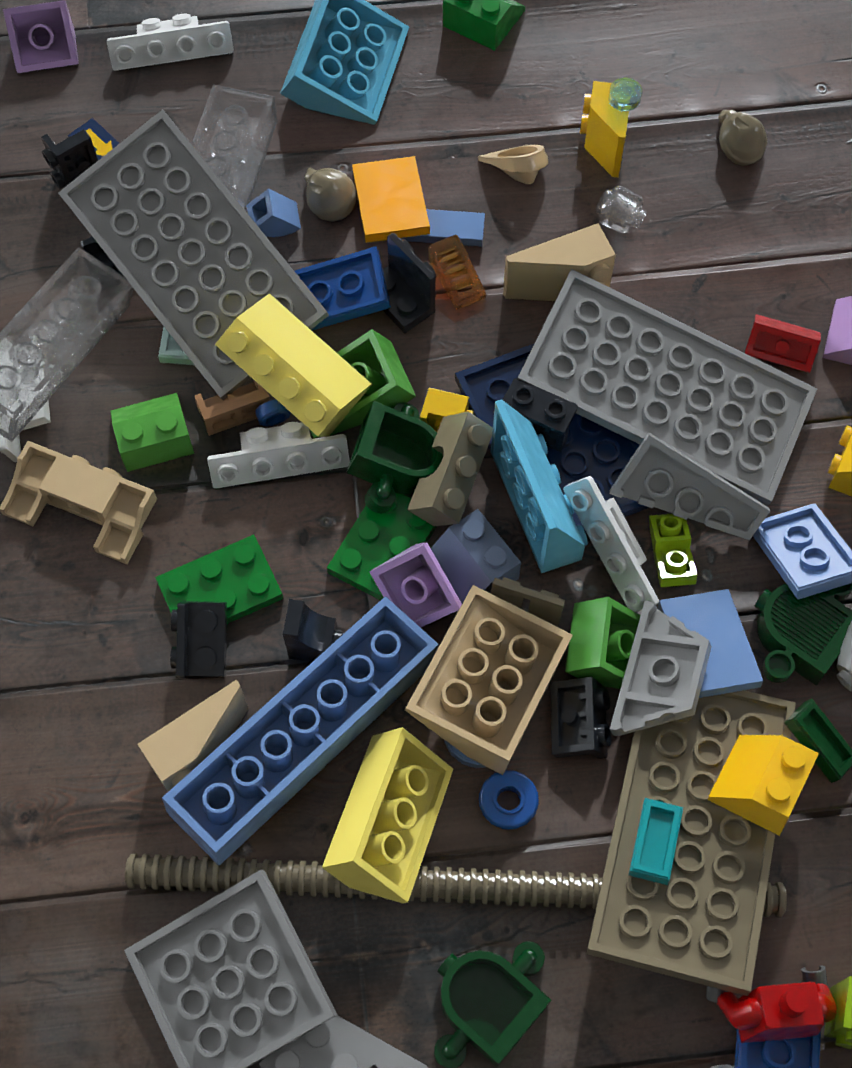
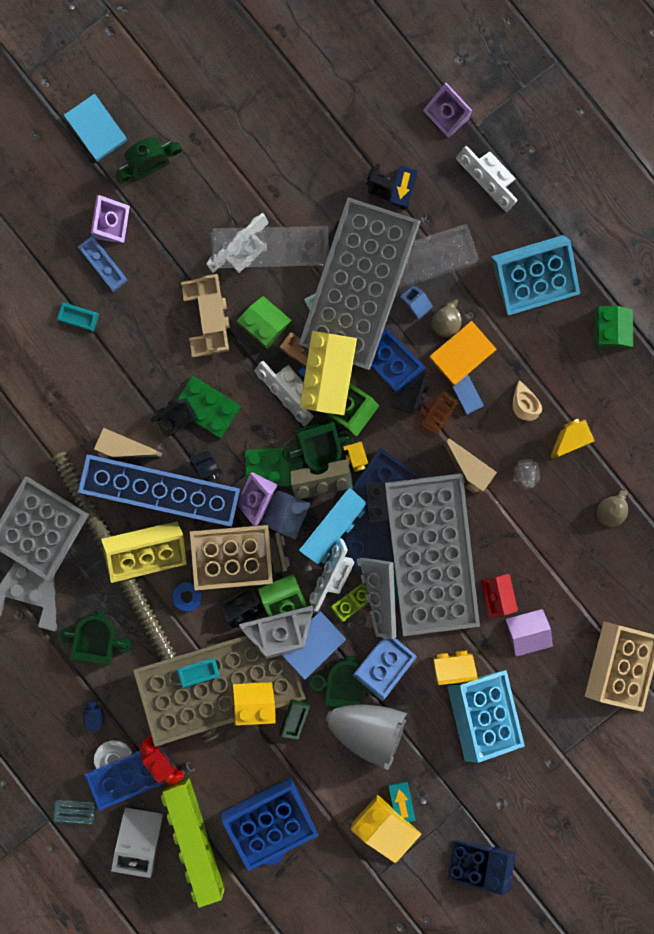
camera: 60 degrees right, 20 degrees up
(625, 94) = (584, 441): clear light blue tile -> none

